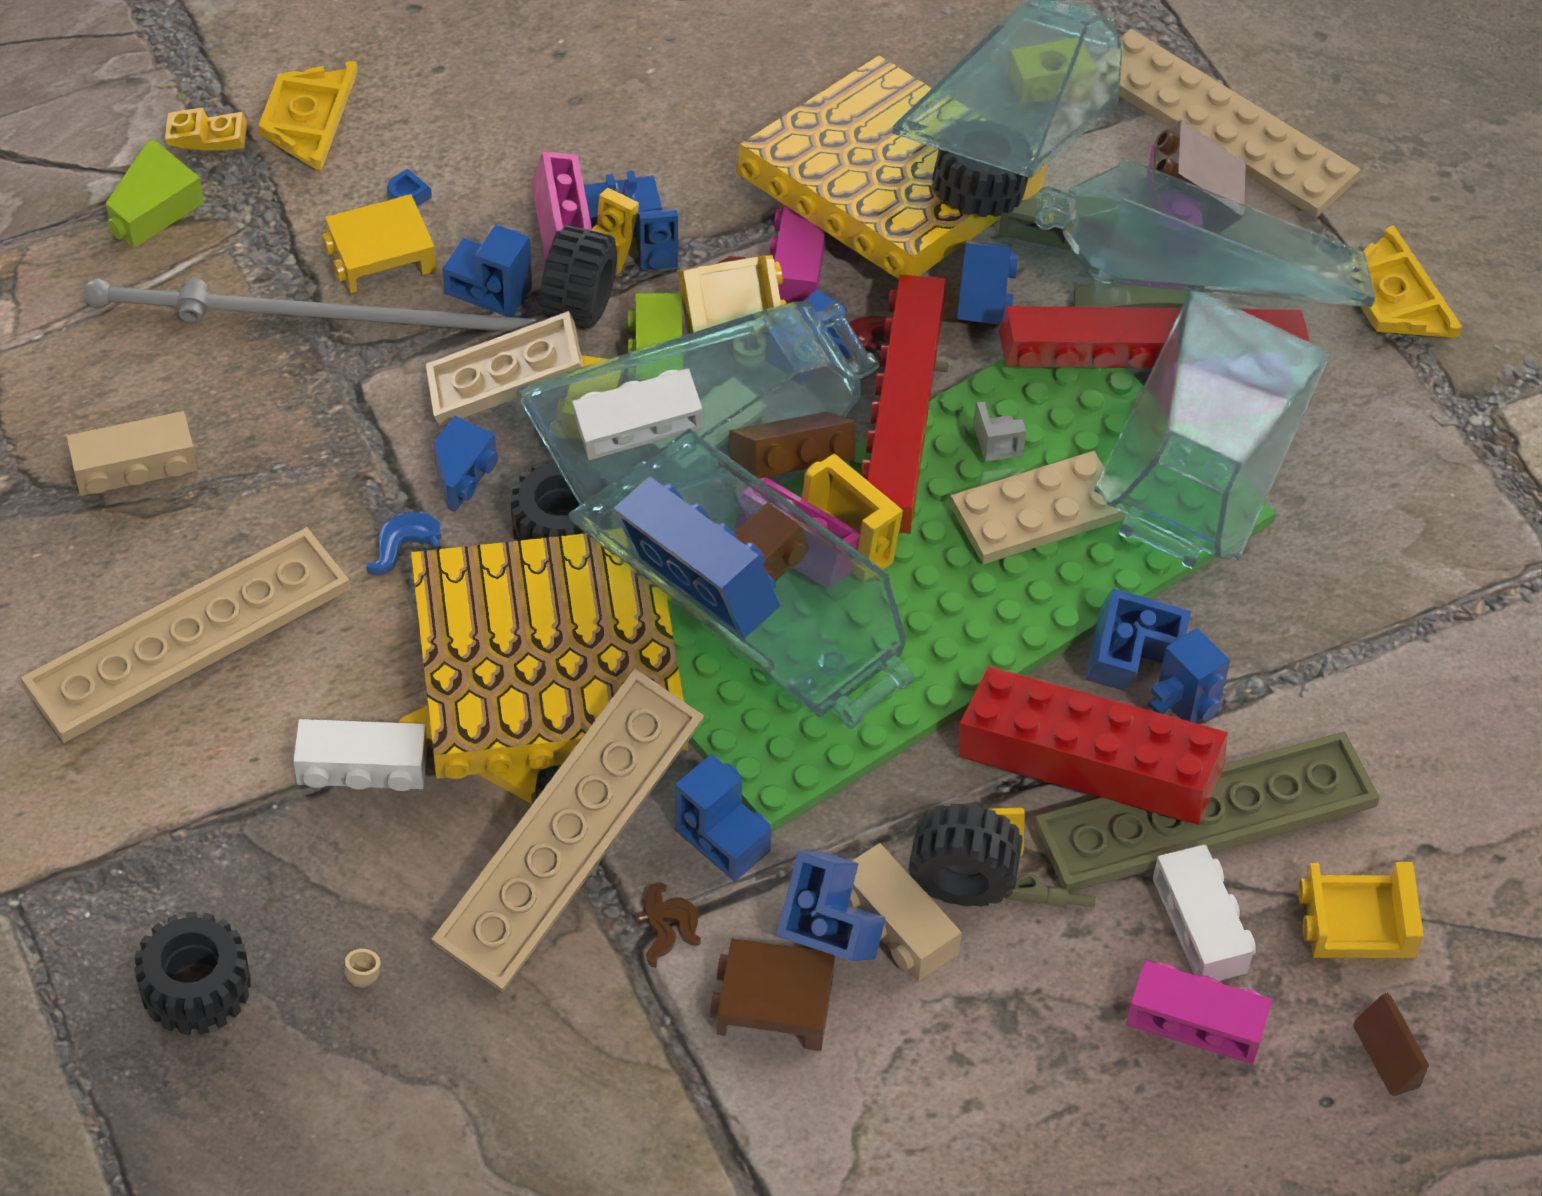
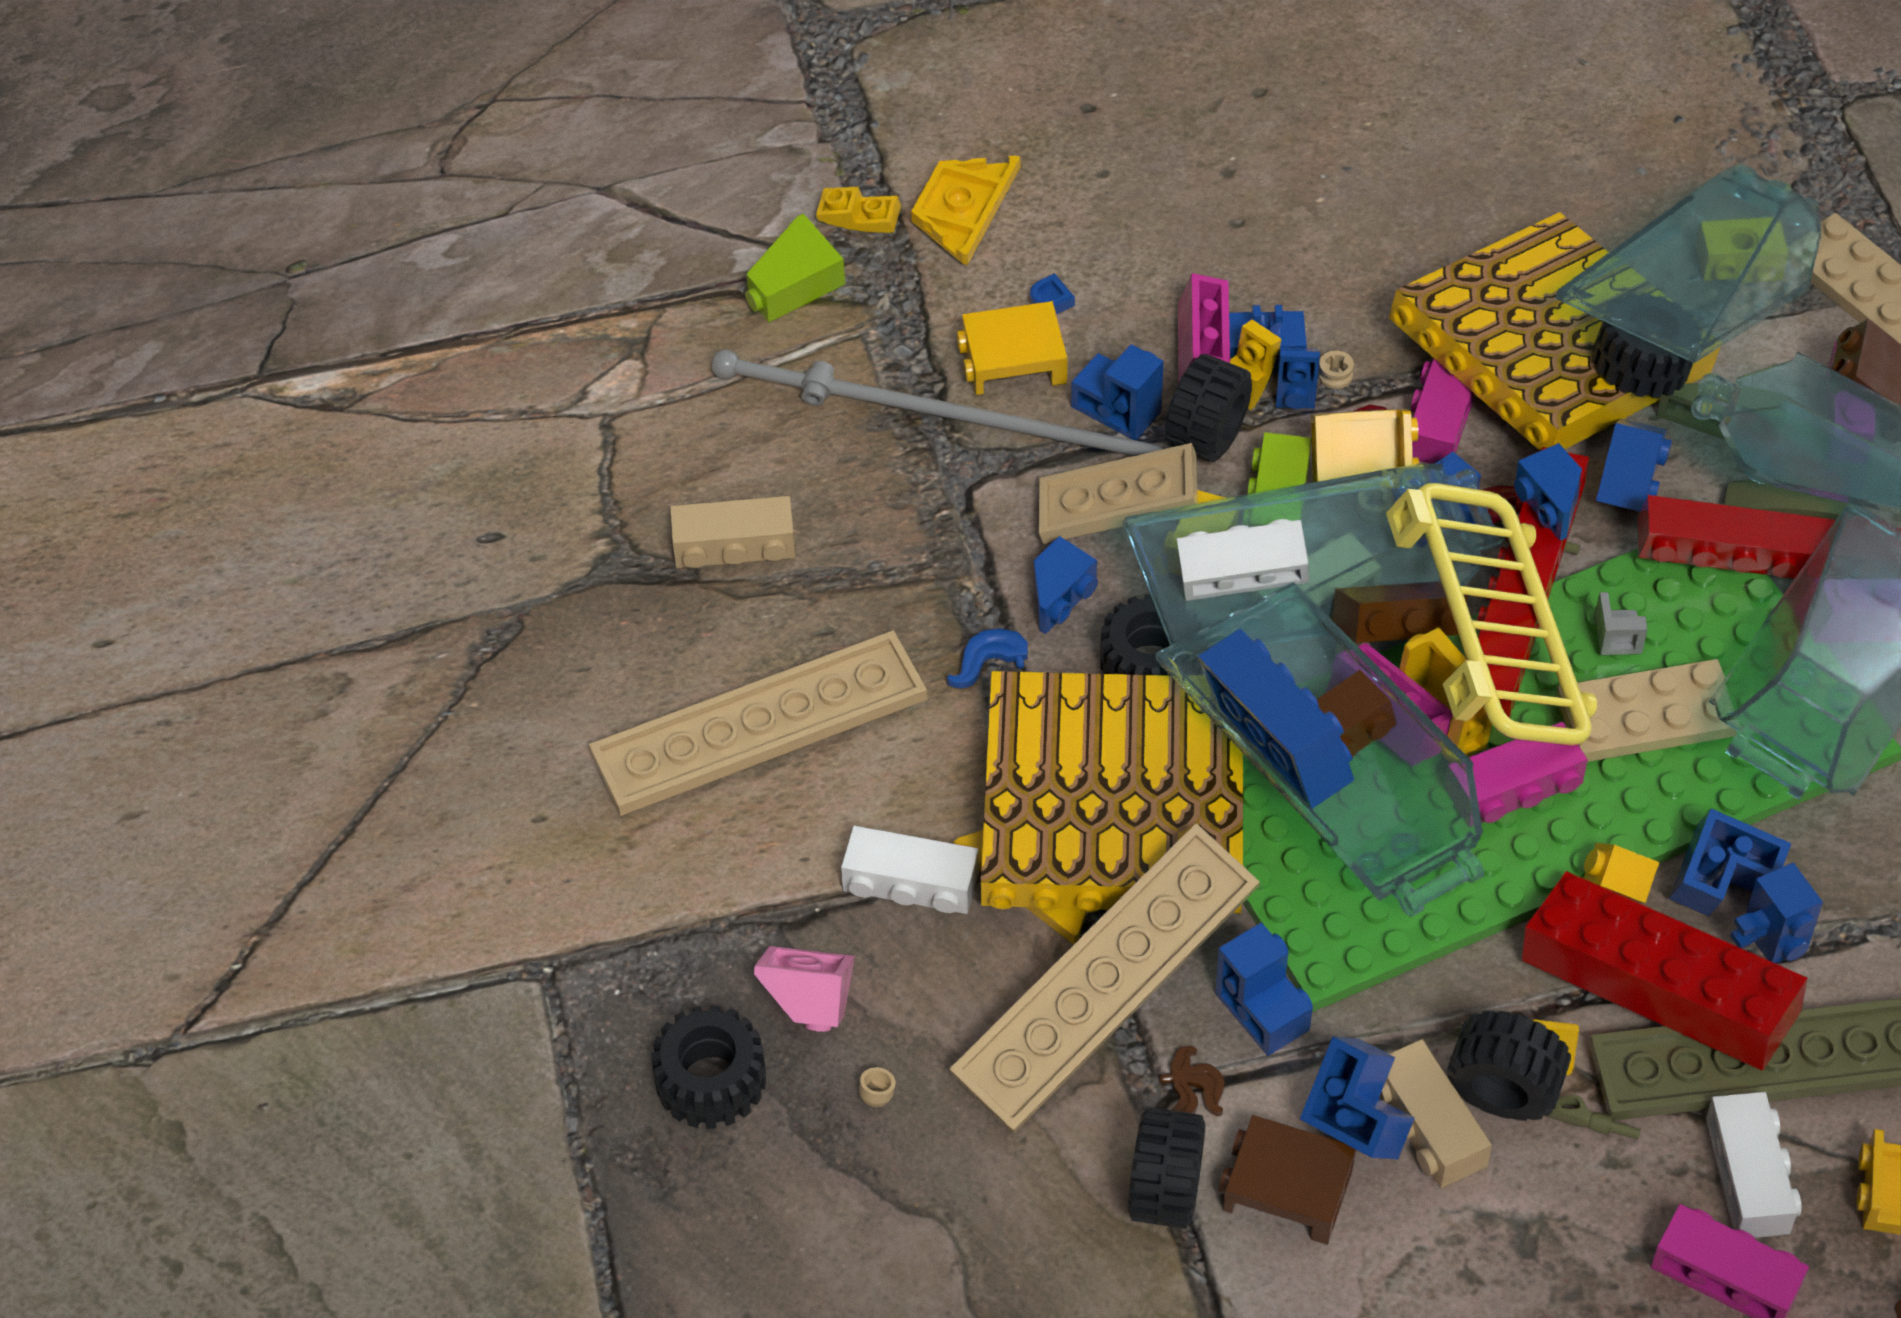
camera: 15 degrees right, 0 degrees up
(278, 879) = (807, 984): none -> bright pink slope
(658, 1000) = (1166, 1167): none -> black tyre
(693, 218) = (1338, 379): none -> tan bush
(874, 502) = (1472, 683): none -> light yellow bar
(915, 310) = (1550, 486): none -> blue slope
(938, 577) = (1525, 774): none -> dark pink brick
(1038, 658) = (1620, 871): none -> yellow brick

